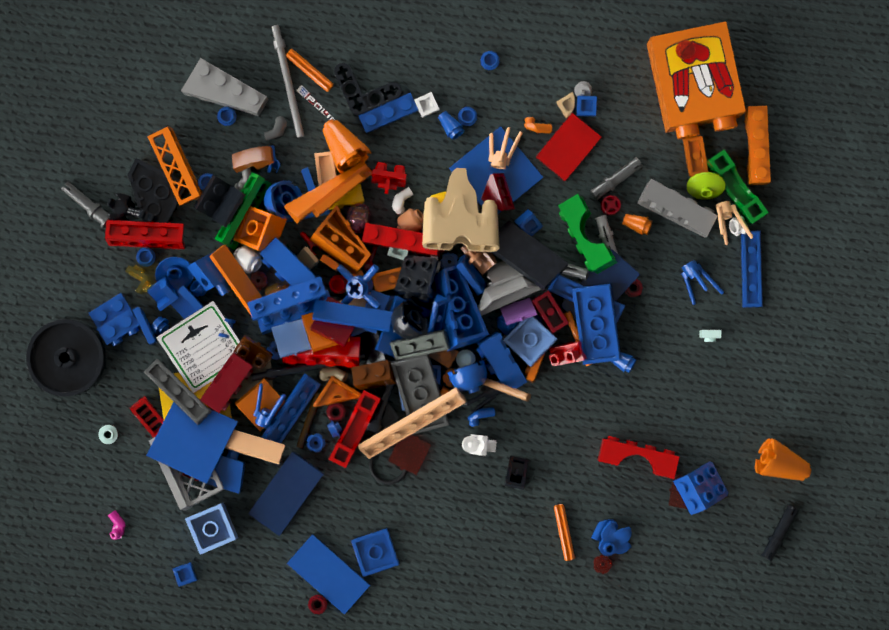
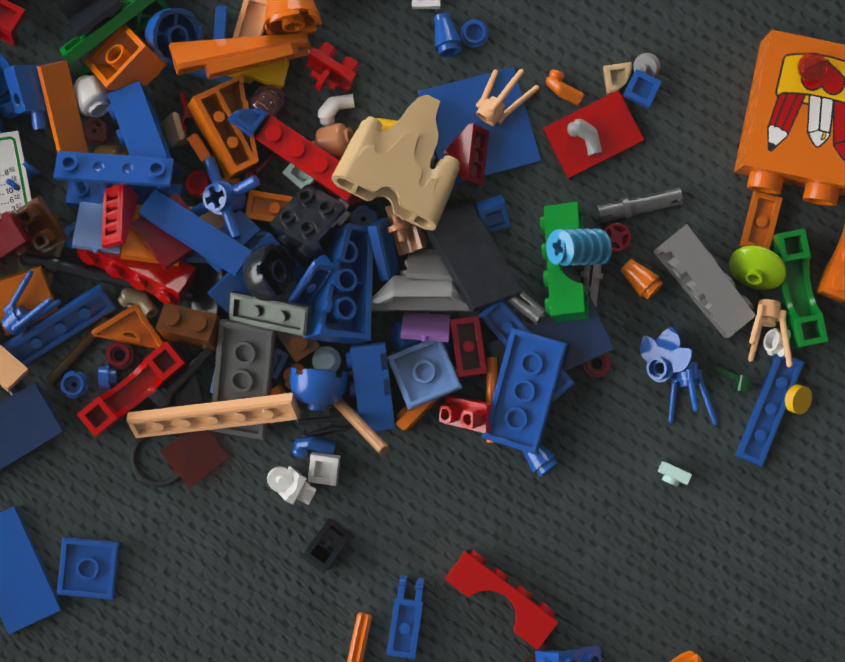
camera: 30 degrees right, 0 degrees up
(298, 319) = (118, 213): none -> red slope
(353, 231) = (248, 119): none -> blue tile
(494, 426) = (324, 468): none -> white plate
(564, 147) = (588, 133): none -> light grey arm
(585, 498) = (405, 621): none -> blue hinge
(591, 221) = (579, 247): none -> dark azure piece
(672, 261) = (665, 350): none -> plate
(727, 260) = (742, 382): none -> dark green hand
(766, 255) = (798, 399): none -> yellow tile

